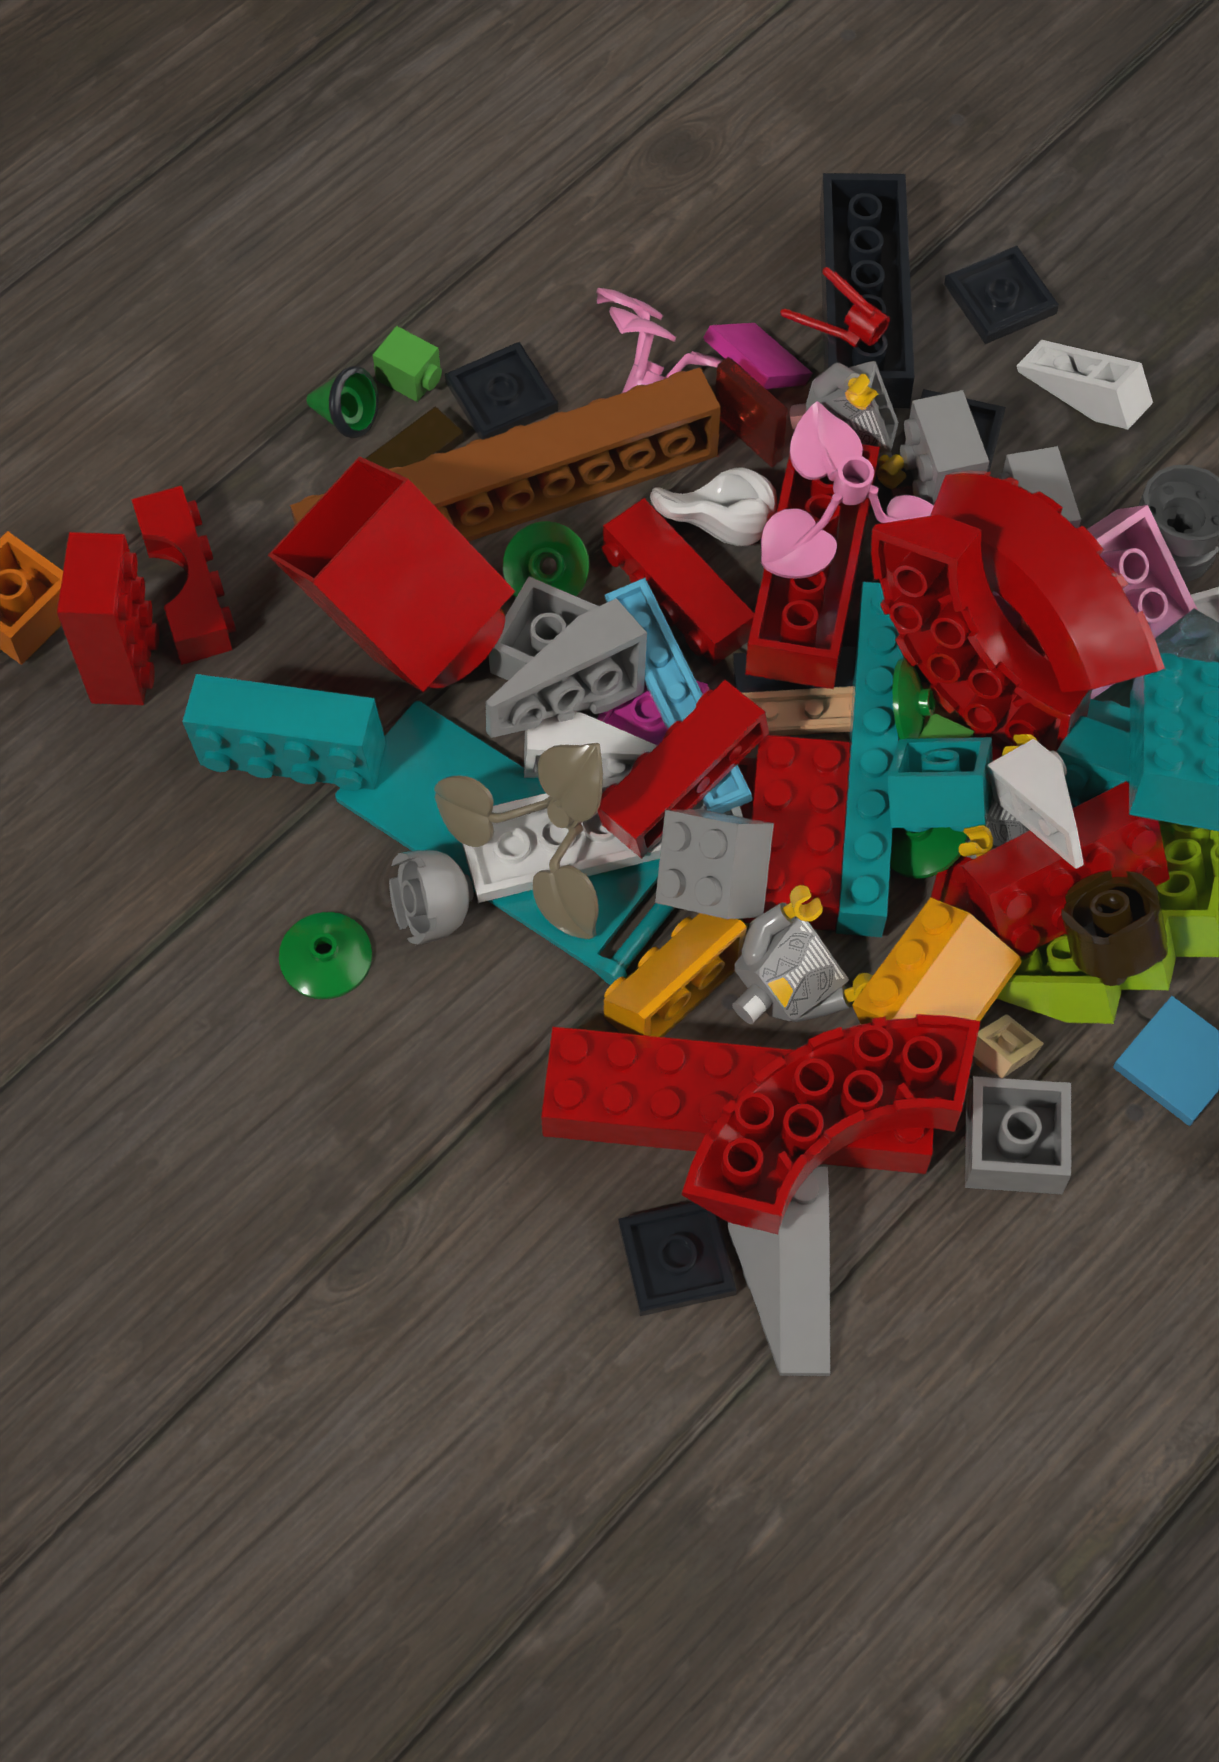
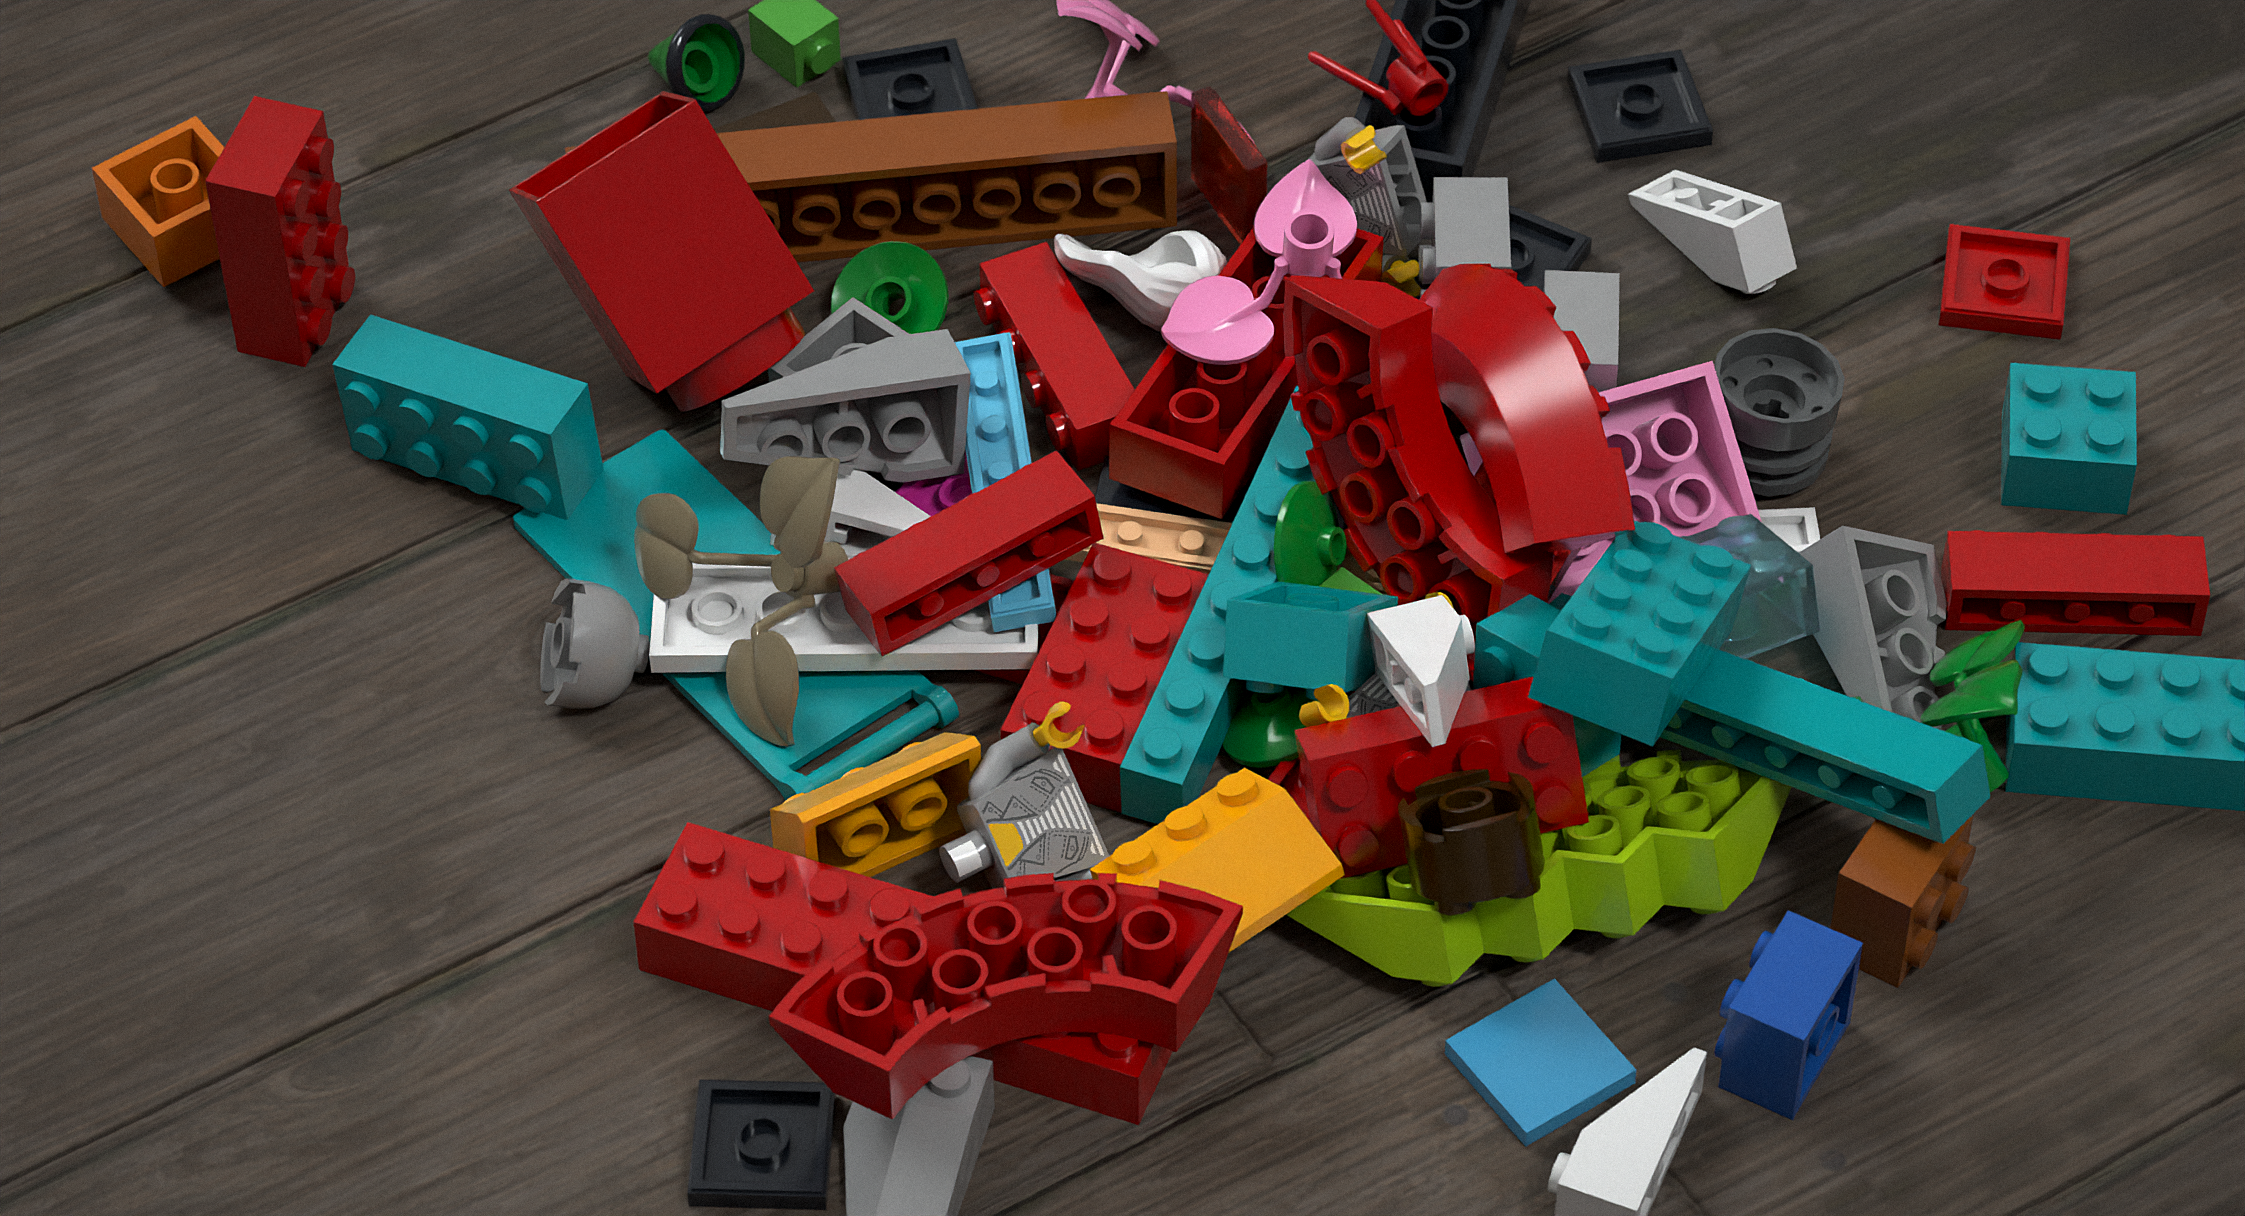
camera: 15 degrees right, 15 degrees down
(194, 614) = (408, 268): red arch -> none
(329, 973) = (431, 700): green dish -> none
(714, 863) = (967, 666): light grey brick -> none
(757, 354) = (1263, 105): dark pink tile -> none
(1004, 1047) = (1289, 979): tan plate -> none
(1018, 1135) = (1270, 1089): light grey brick -> none

